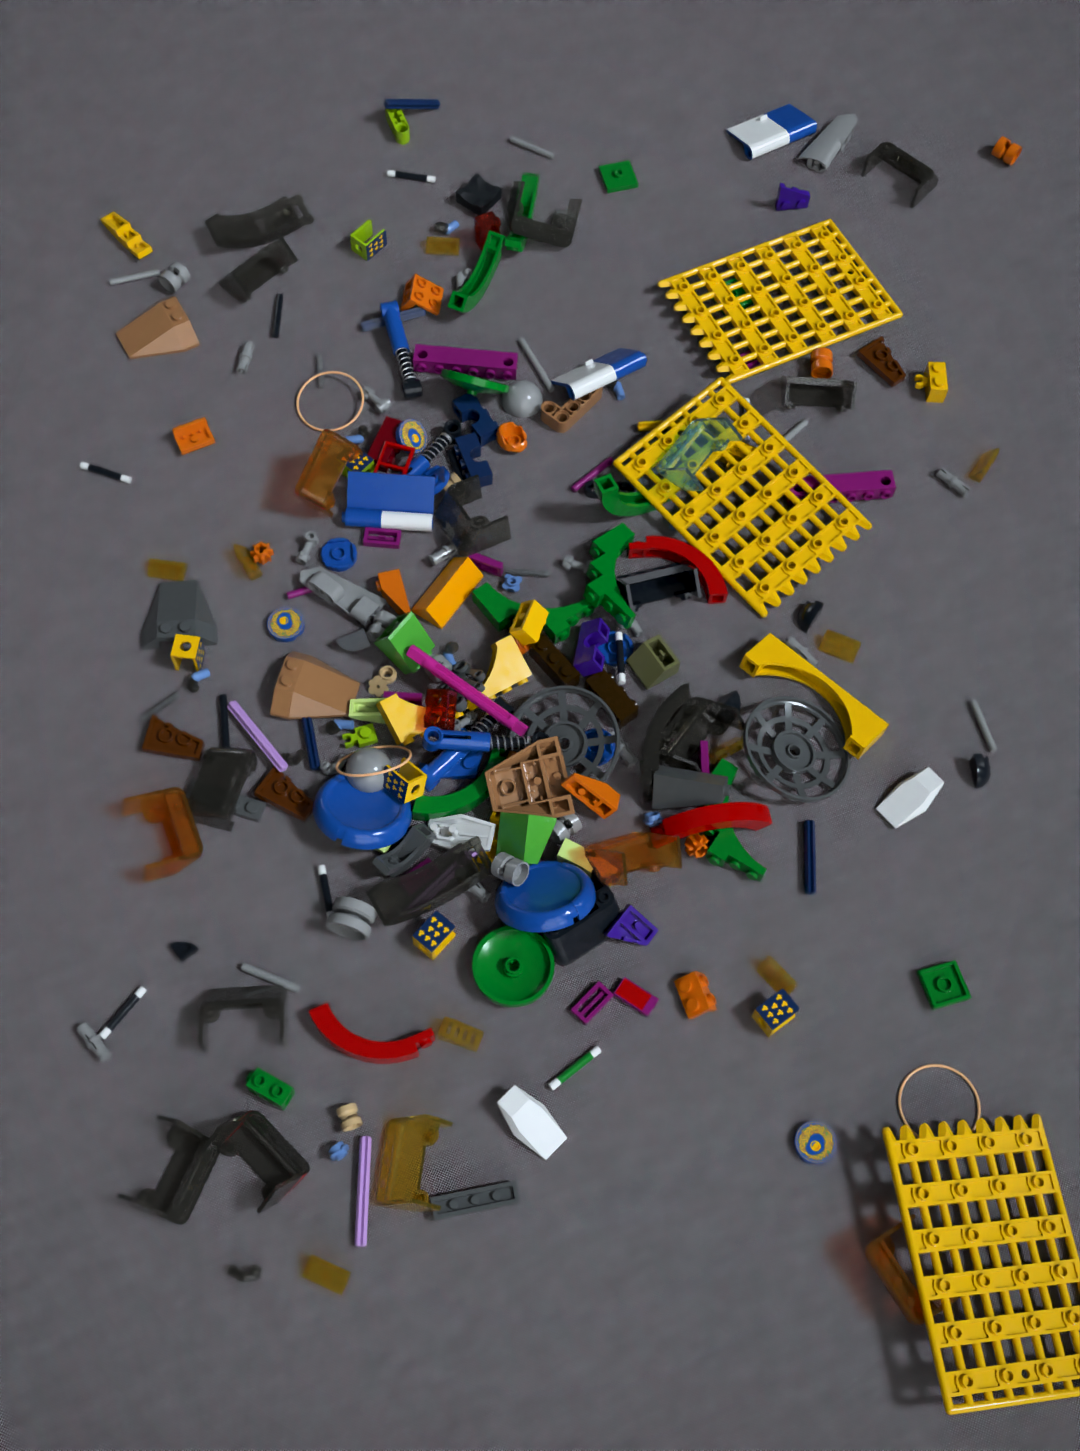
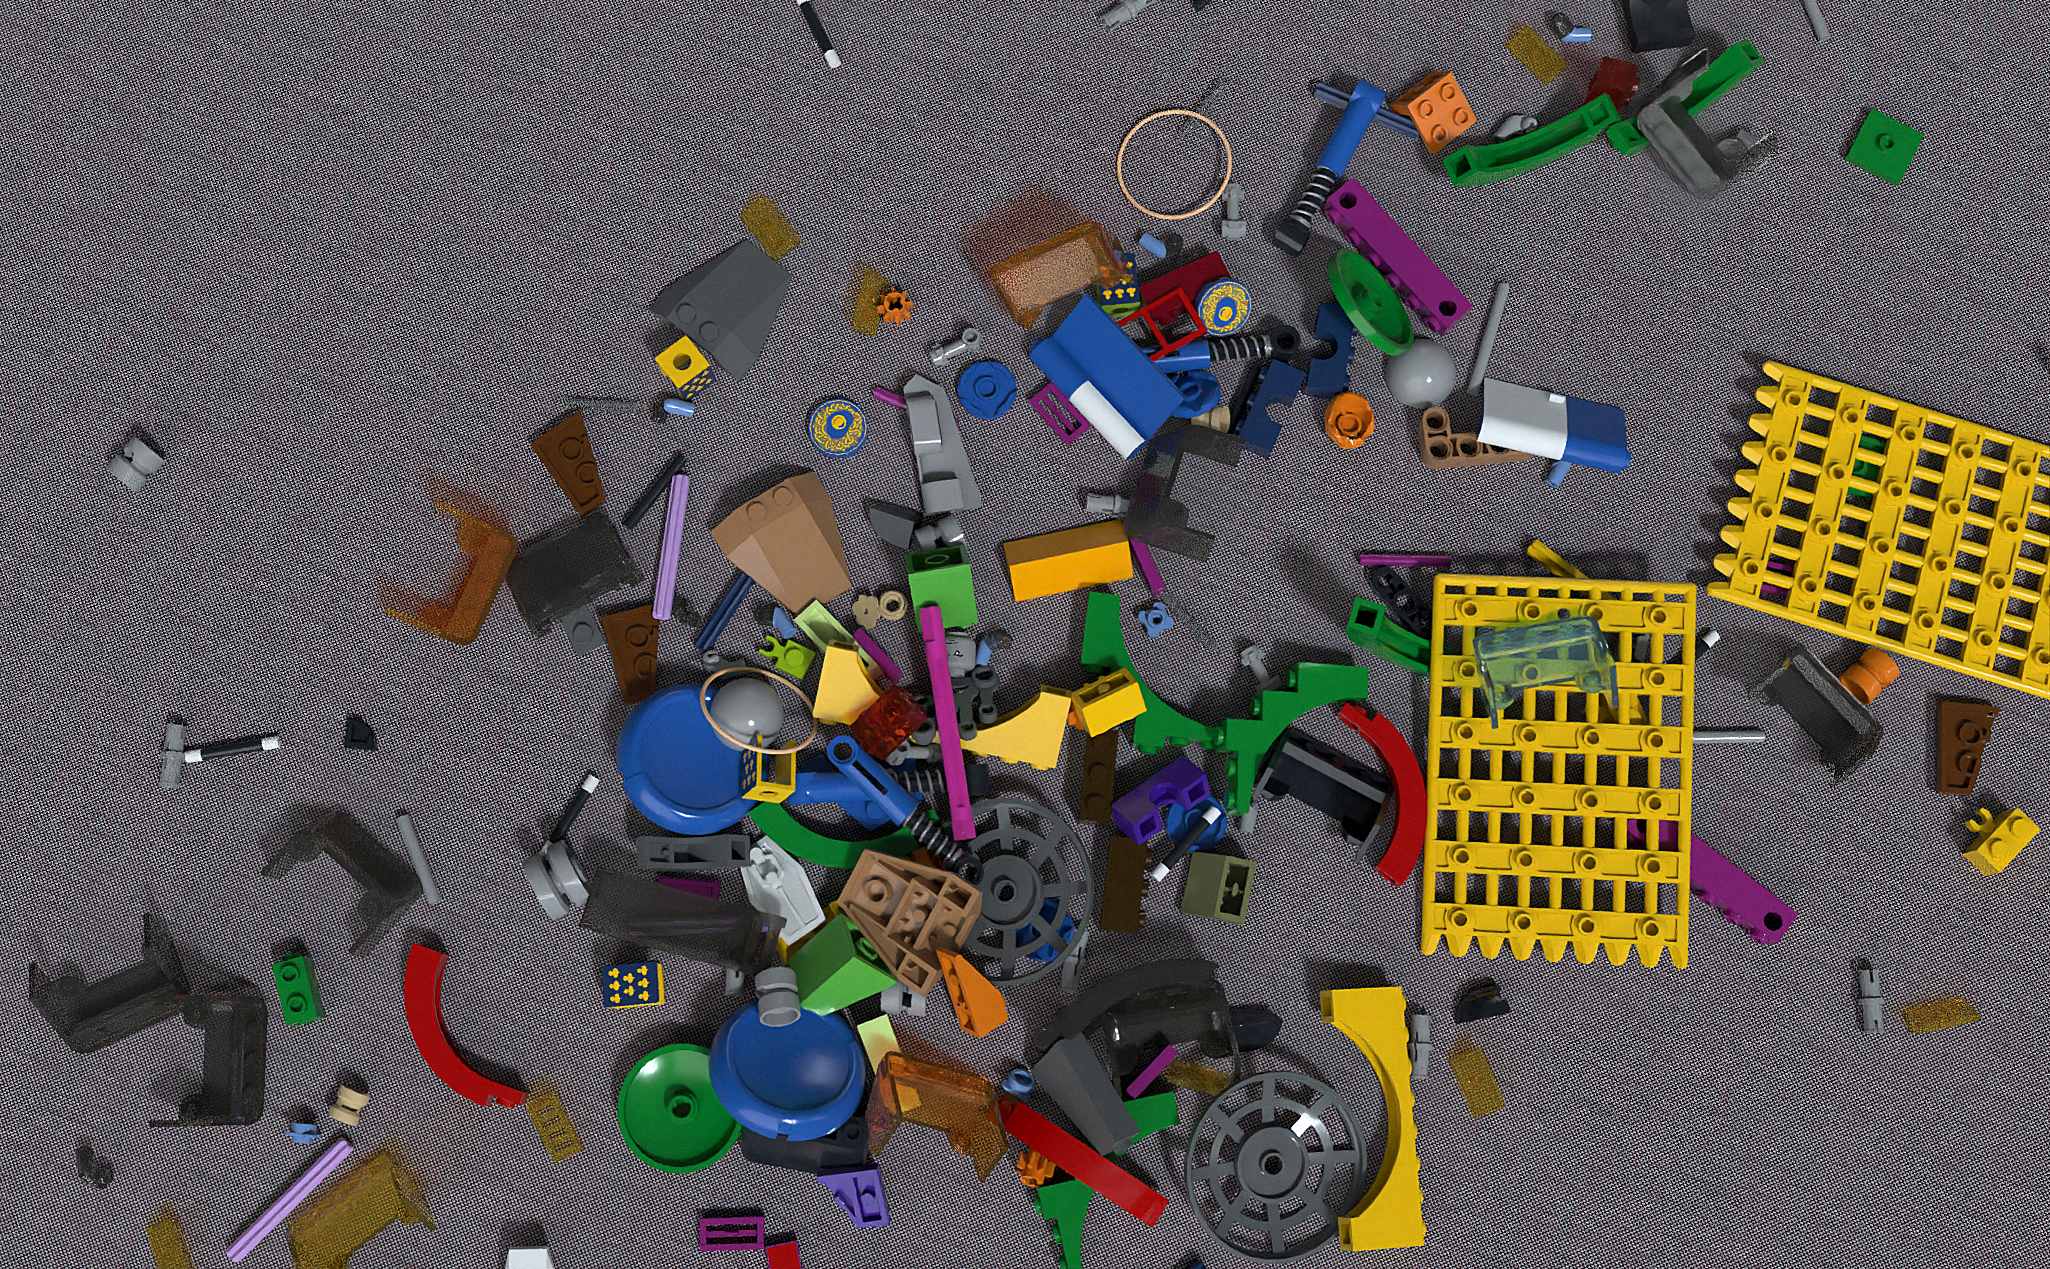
camera: 45 degrees right, 15 degrees up
(193, 435) = (961, 70): orange bracket -> none
(393, 590) = (1003, 498): orange slope -> none

